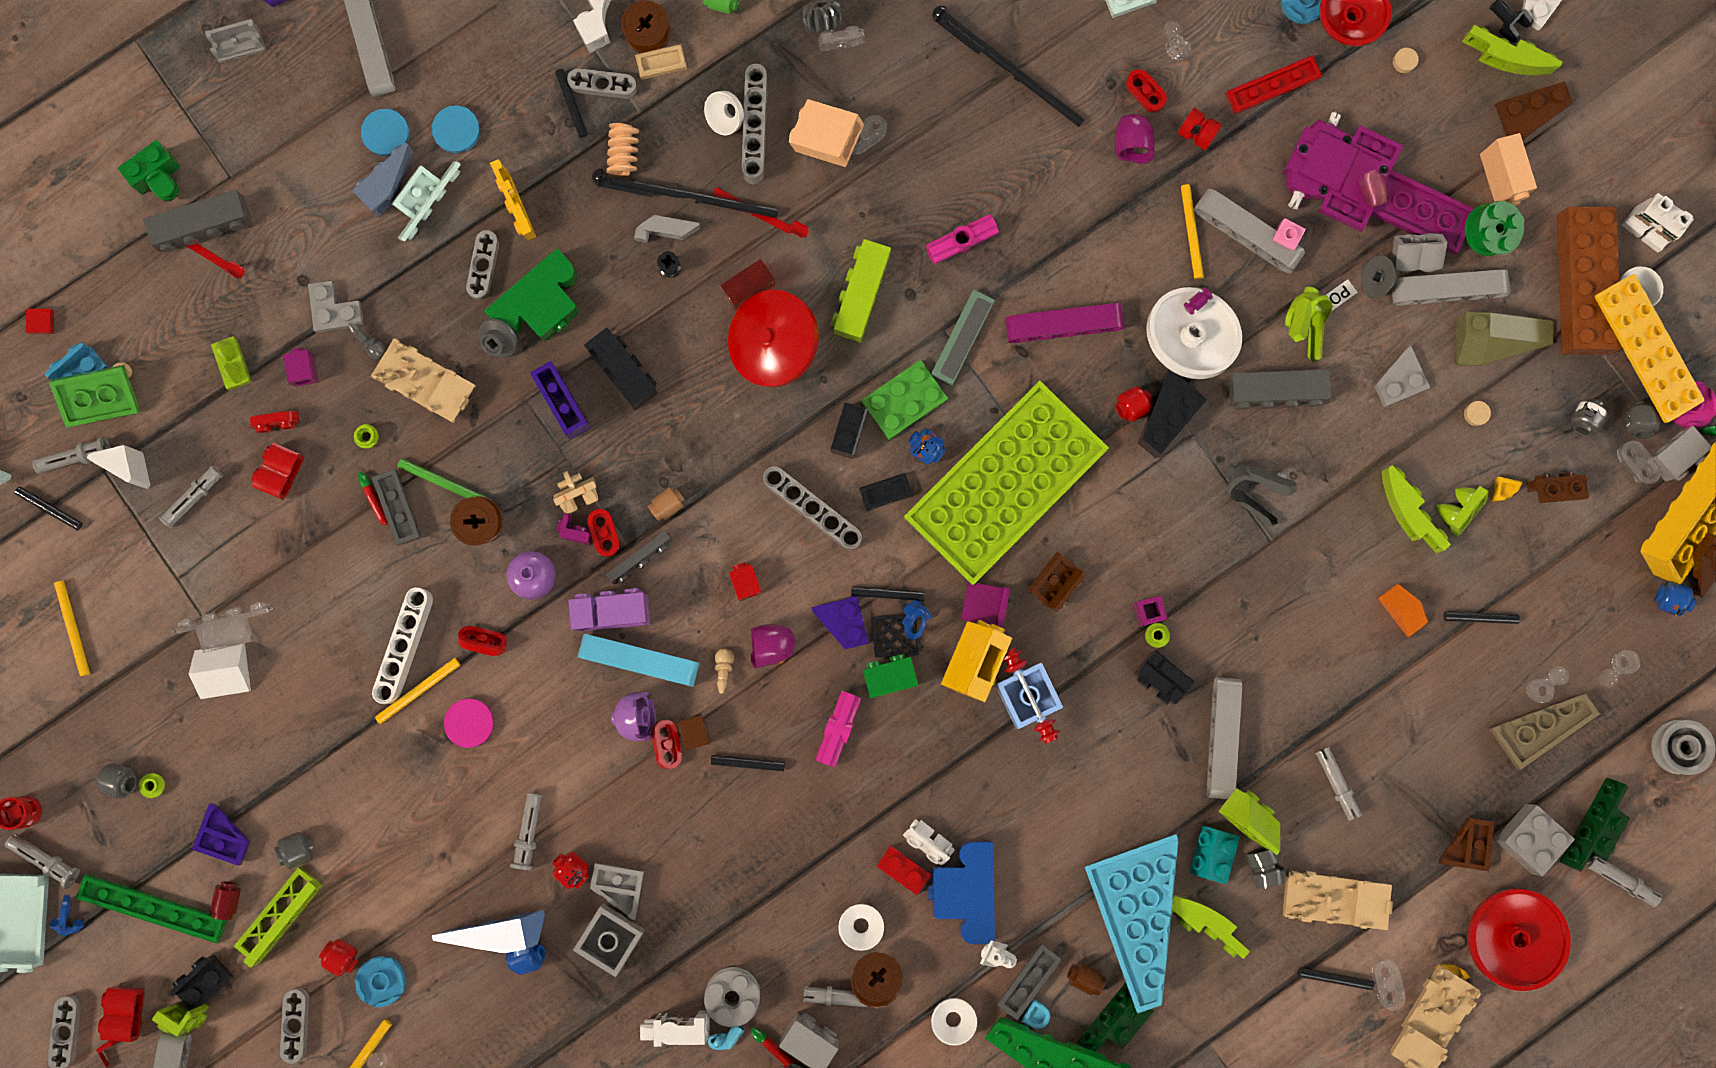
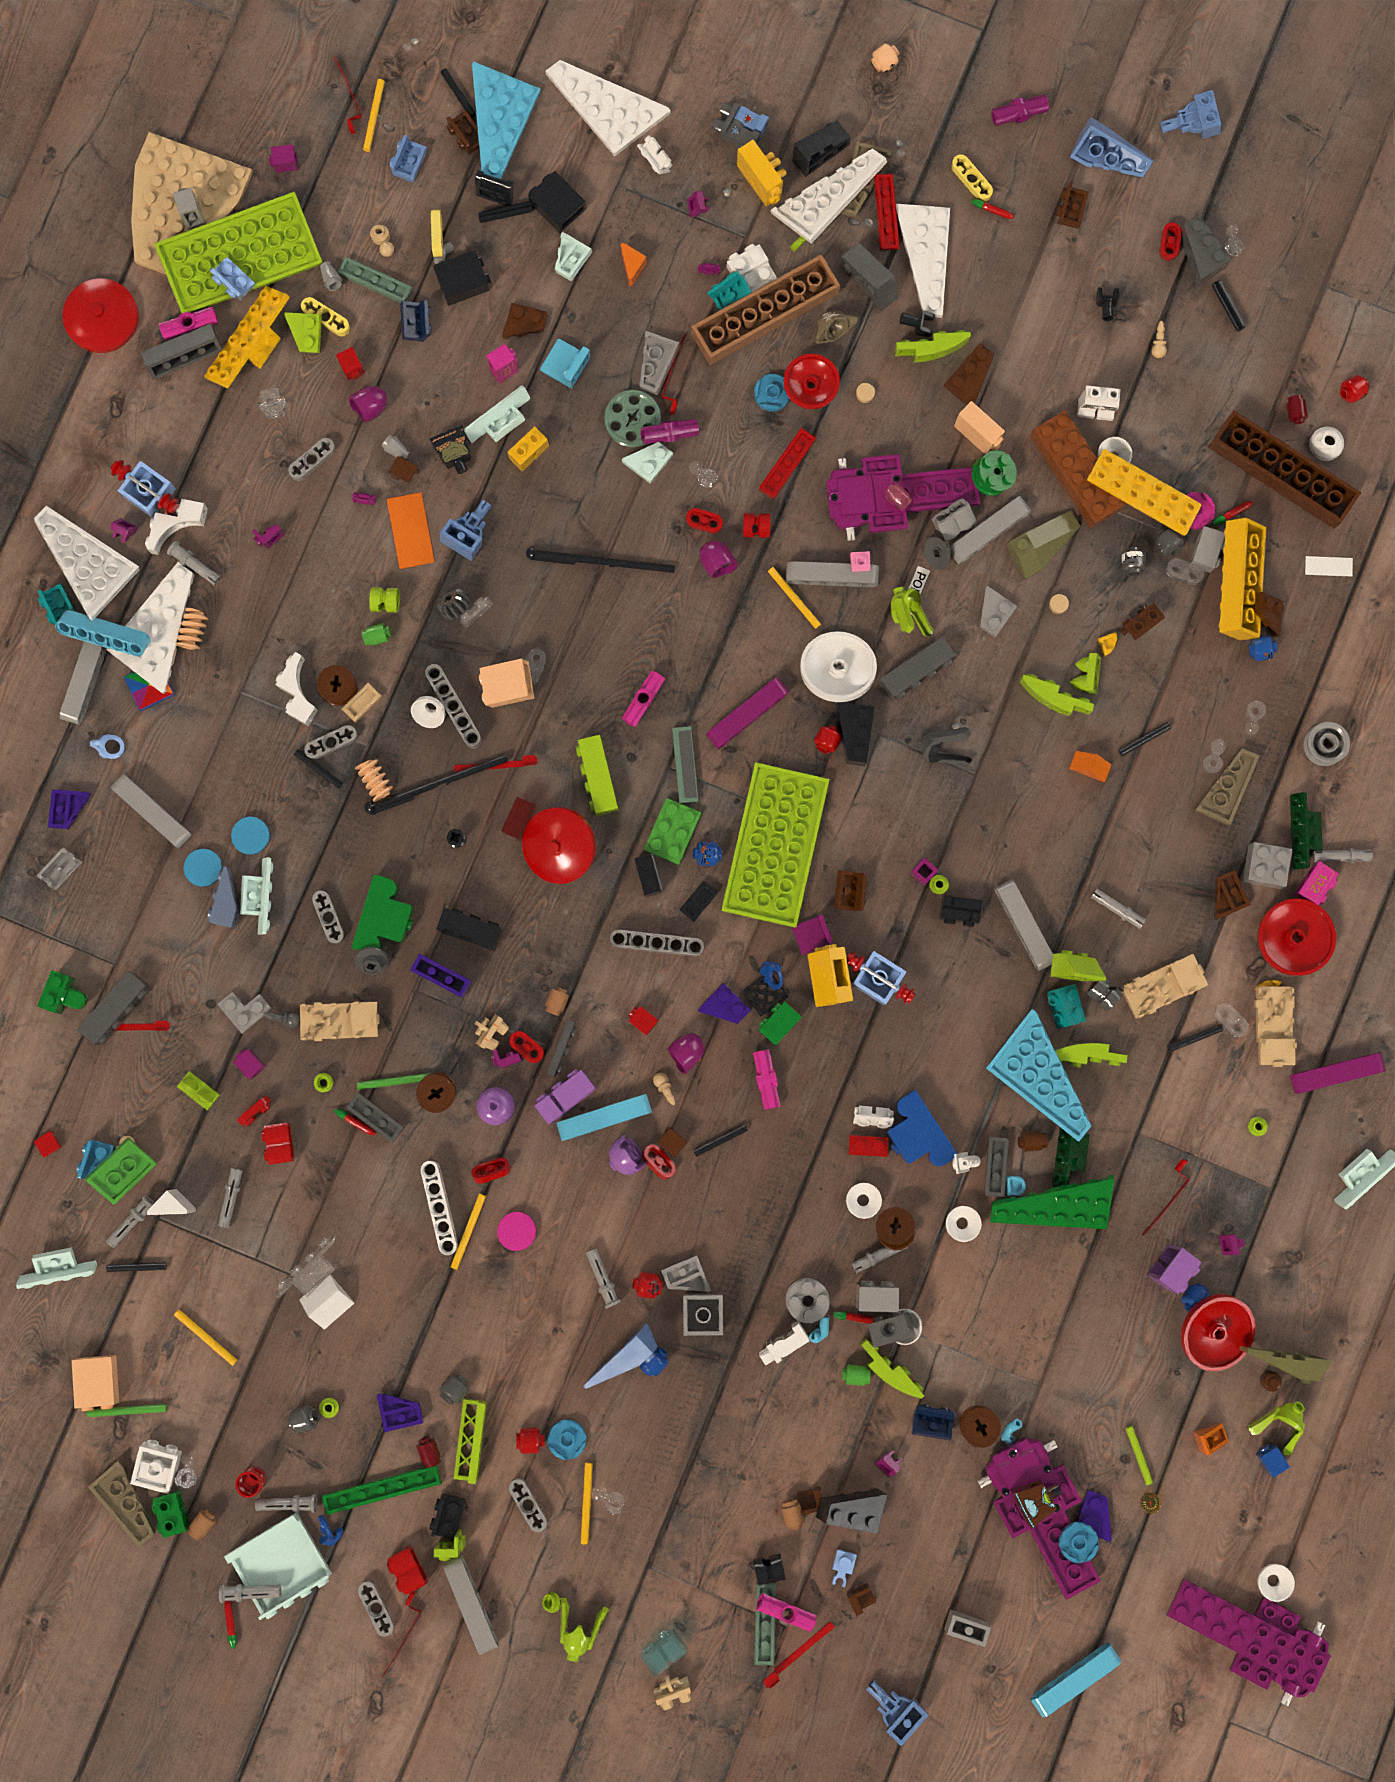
camera: 30 degrees left, 0 degrees up
(513, 202) = (322, 861): yellow wing -> none
(665, 227) = (437, 814): light grey piece -> none
(887, 593) = (743, 968): black bar -> none
(1198, 301) = (827, 643): magenta piece -> none
(1578, 894) = (1317, 883): none -> dark pink brick

